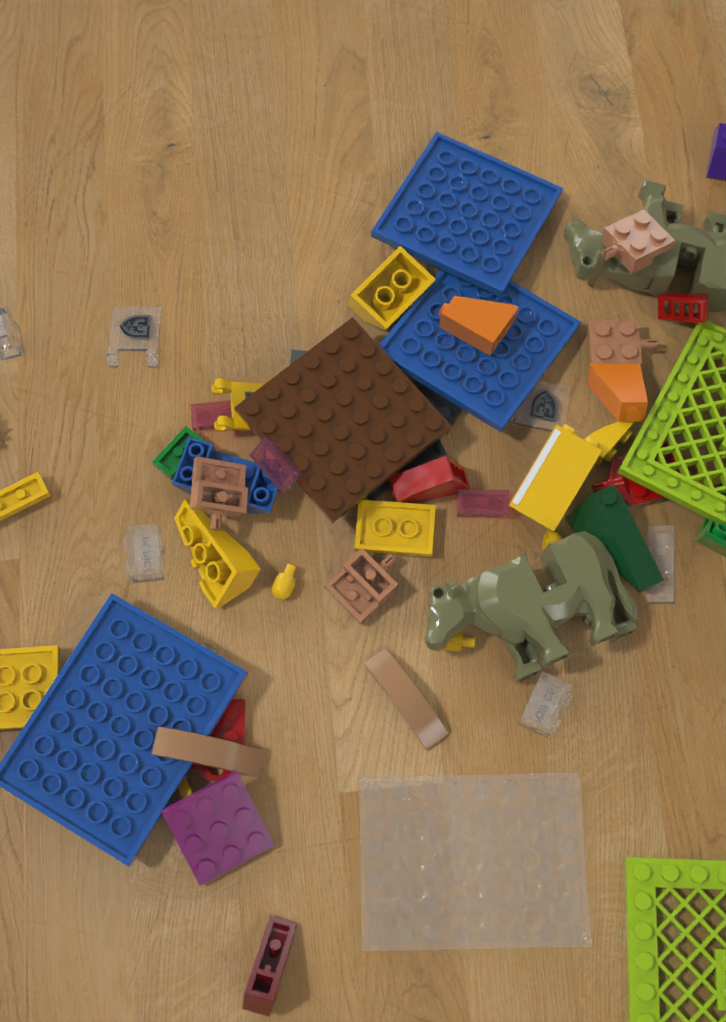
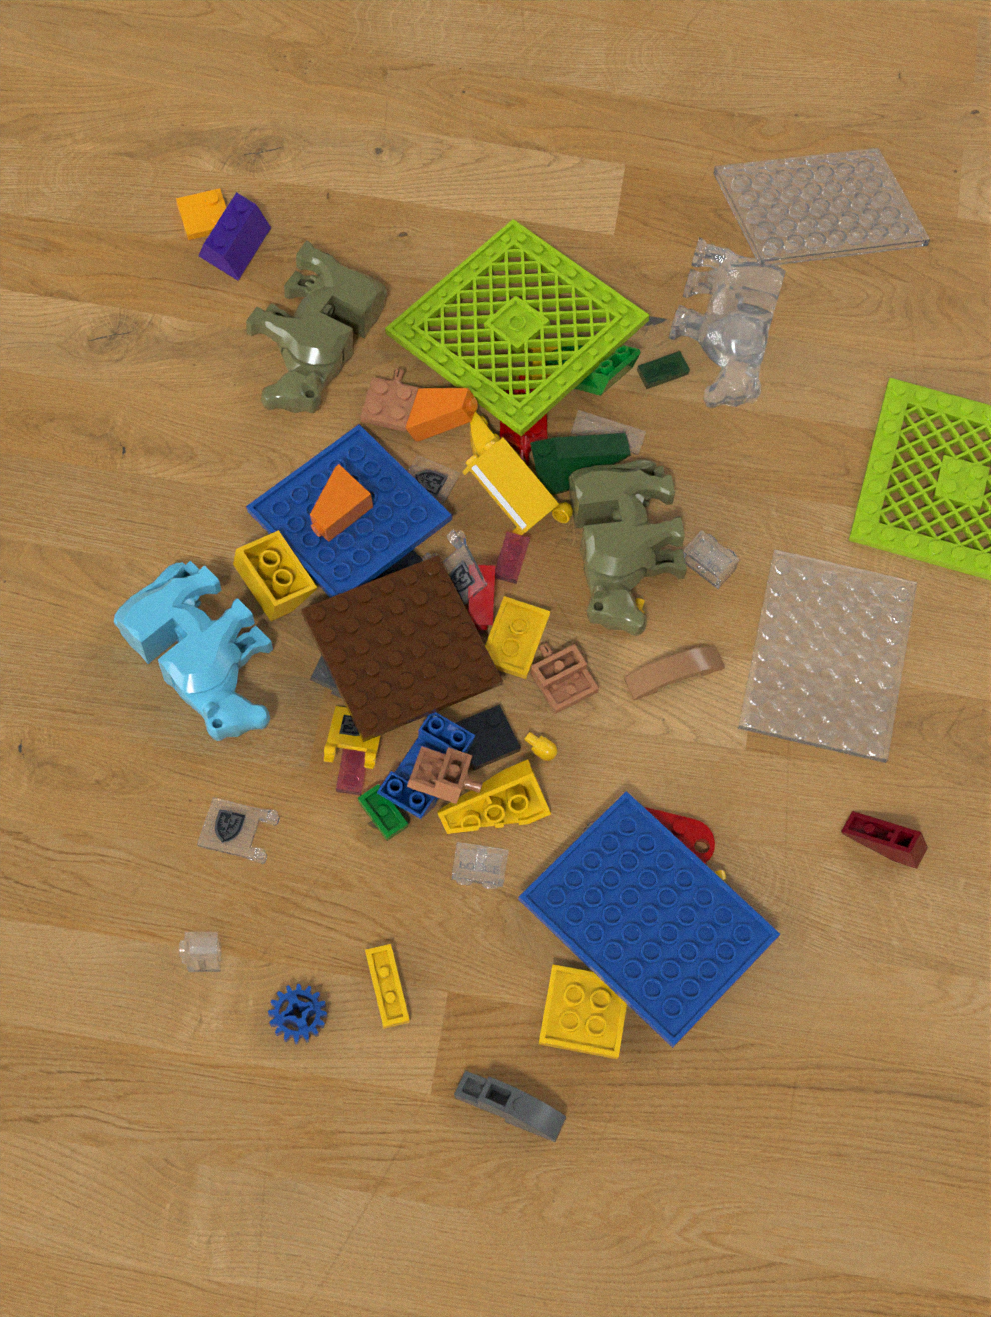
camera: 85 degrees left, 5 degrees down
(207, 751) = (691, 845): medium nougat slope -> none
(217, 828) = (759, 852): magenta plate -> none
(275, 464) = (436, 713): clear pink plate -> none
(283, 529) = (492, 737): none -> black plate
(292, 246) = (207, 653): none -> medium azure animal
(444, 448) = (462, 567): none -> clear flag
(467, 213) = (211, 486): blue plate -> none
(636, 241) = (311, 345): nougat plate -> none
(700, 299) = (379, 341): red slope -> none

